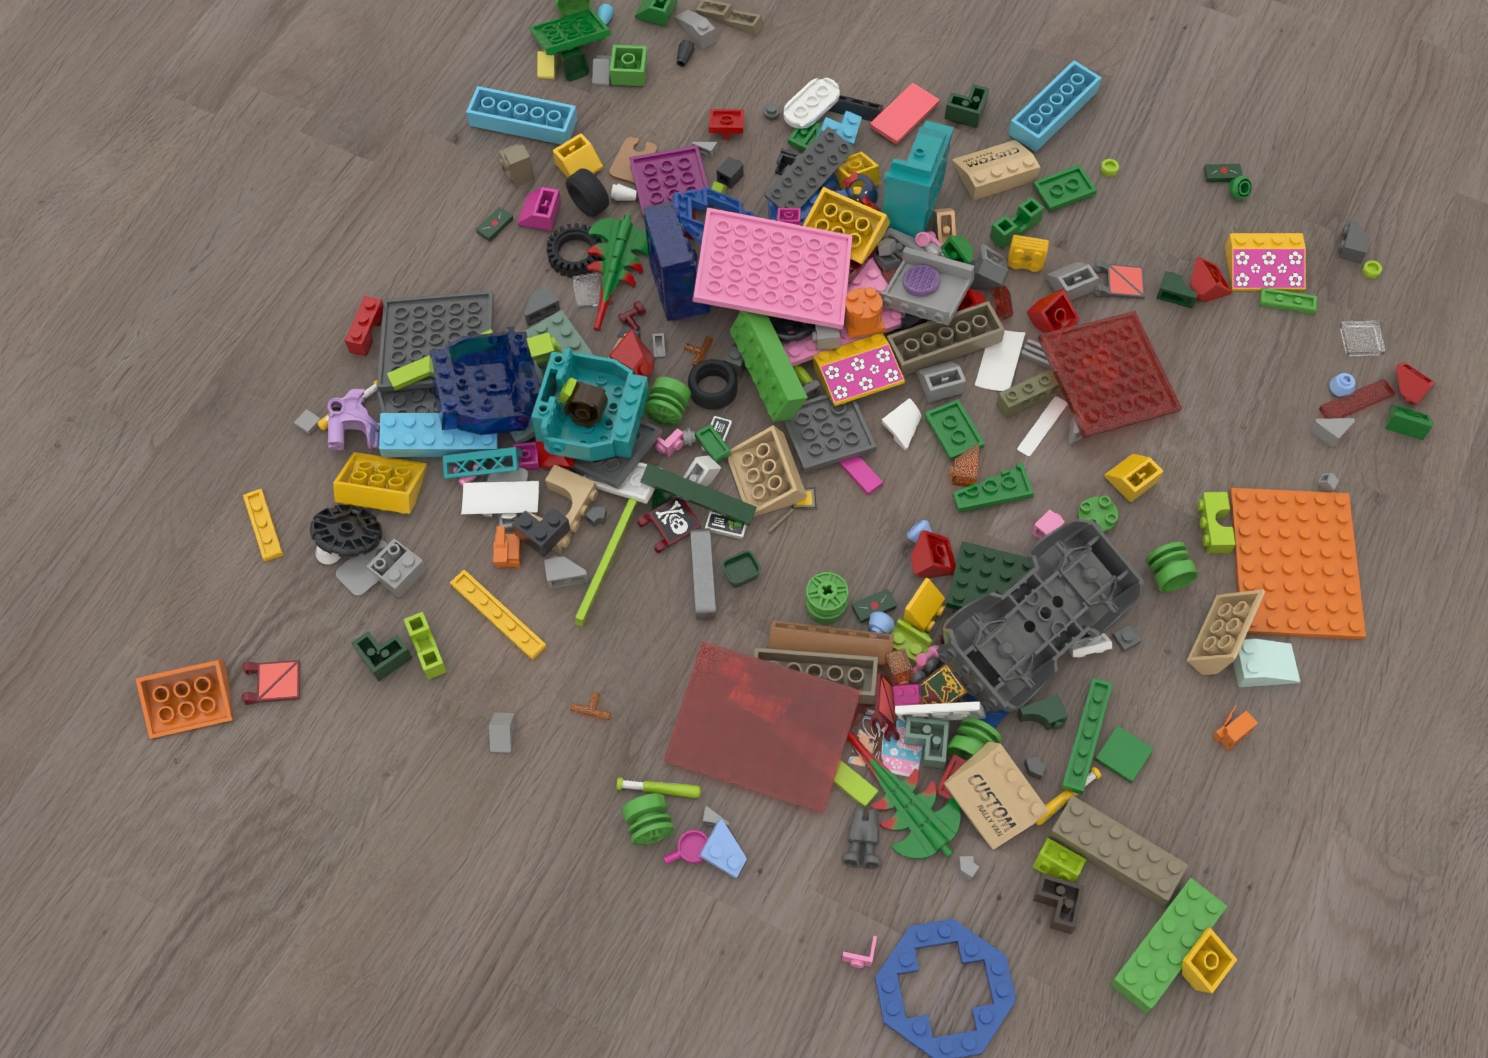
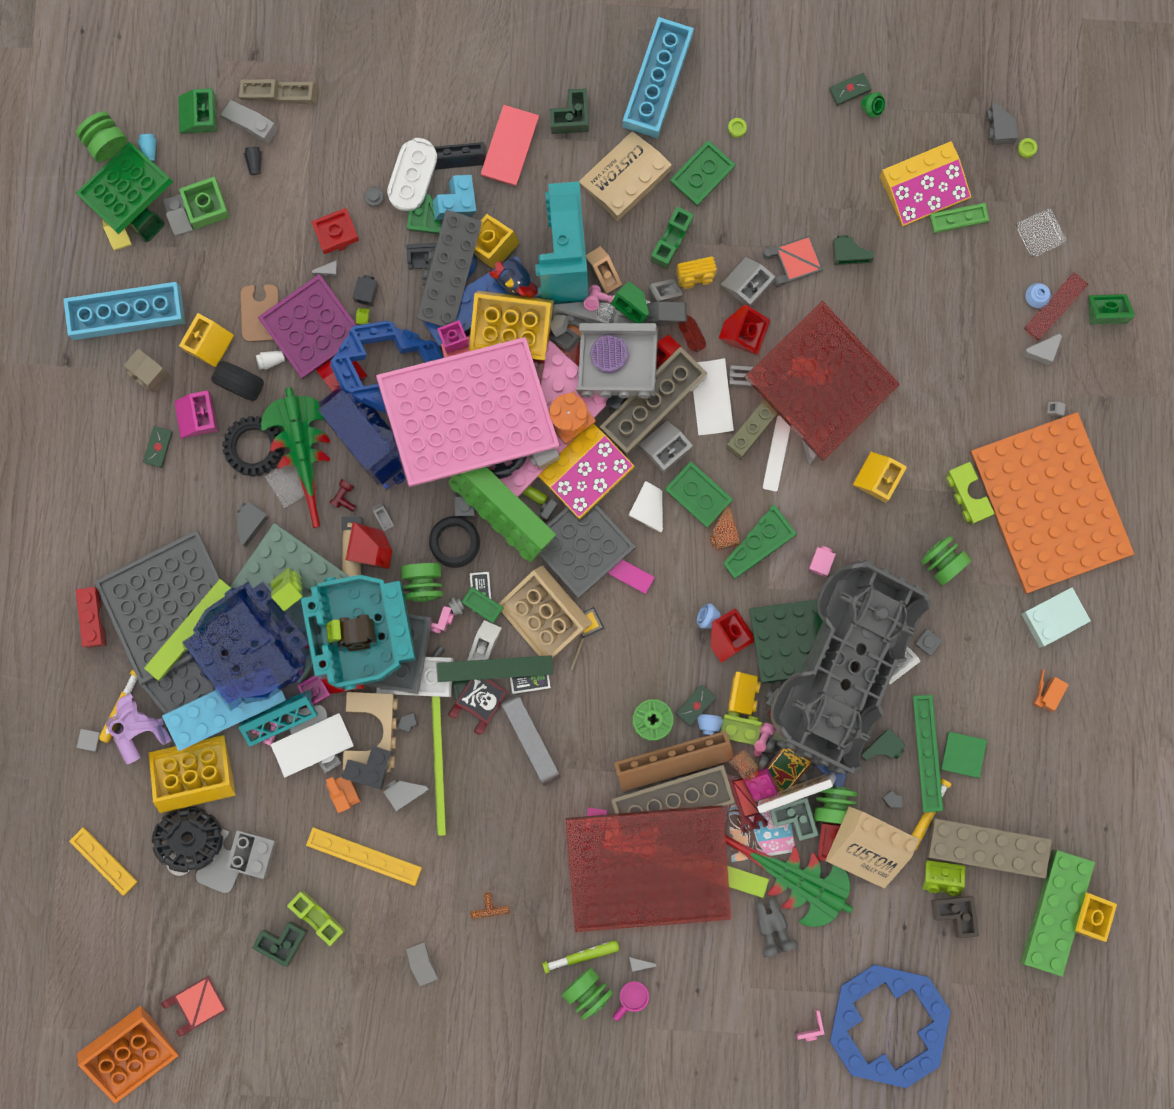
camera: 20 degrees left, 20 degrees up
(700, 351) = (426, 507): clear orange piece -> none
(723, 850) = (661, 990): light blue wing -> none
(741, 568) = (563, 721): dark green piece -> none
(967, 867) = (869, 914): light grey piece -> none
(1100, 510) = (861, 528): bright green dish -> none
(1208, 281) = (878, 228): red slope -> none
(1224, 631) = (1013, 608): tan slope -> none
(1413, 383) = (1102, 266): red slope -> none

